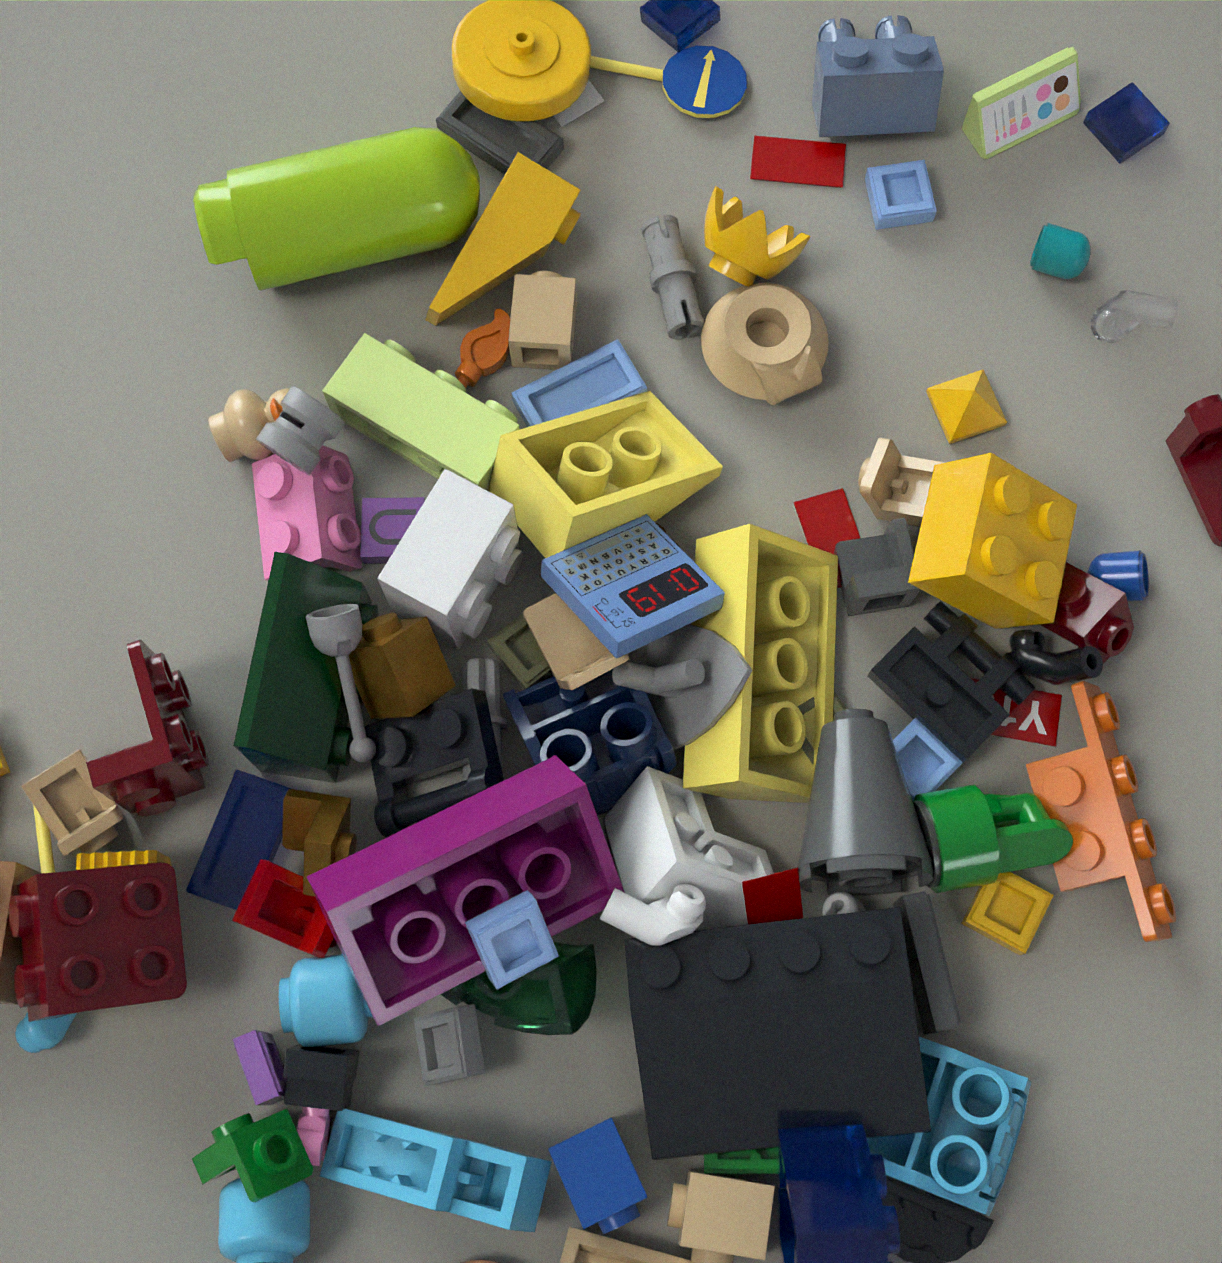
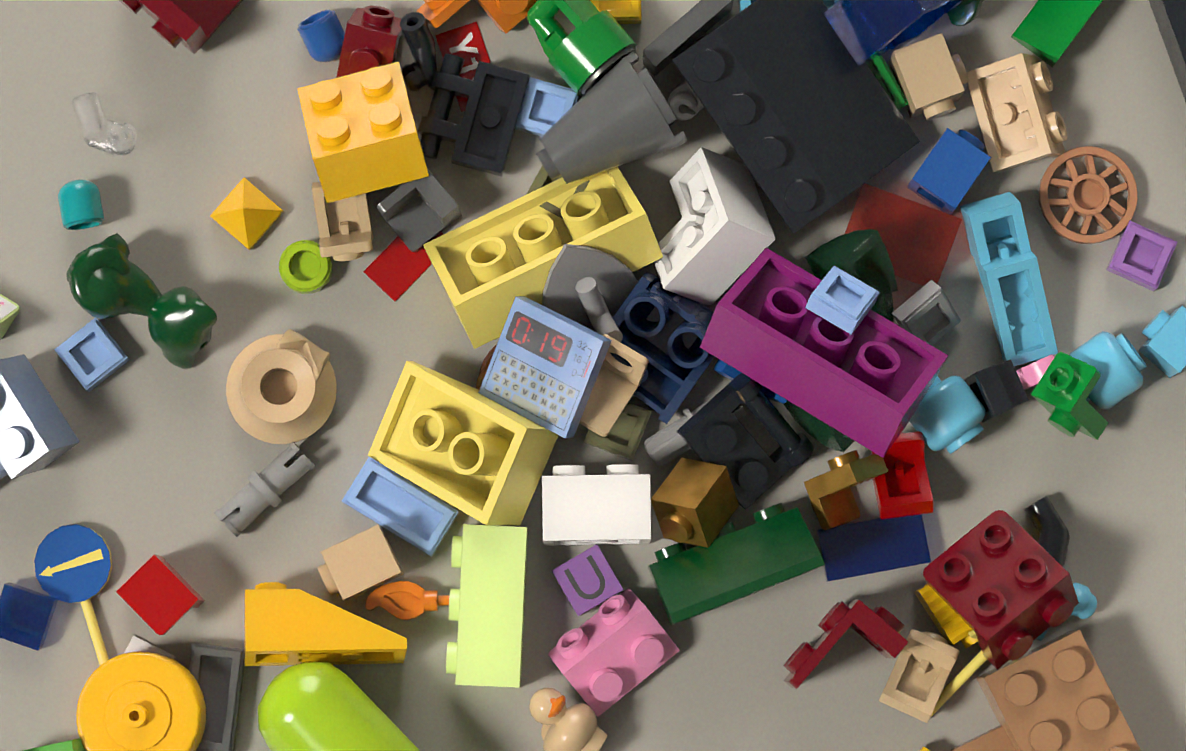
camera: 120 degrees left, 10 degrees up
(125, 1045) = (1053, 532): none -> black arm
(262, 1066) = (1013, 431): medium lavender tile -> none
(300, 430) = (566, 674): light grey wheel -> none
(336, 633) = (702, 550): light grey hinge -> none
(556, 1079) = (913, 233): none -> clear red plate
(626, 129) = (159, 594): none -> red panel
(658, 921) = (771, 214): white arm -> none
(743, 243) = (217, 437): yellow piece -> none
(773, 897) = (710, 149): red sticker -> none
(798, 161) = (103, 451): red sticker -> none
(875, 421) = (304, 267): none -> lime tile
(964, 224) = (113, 286): none -> dark green animal

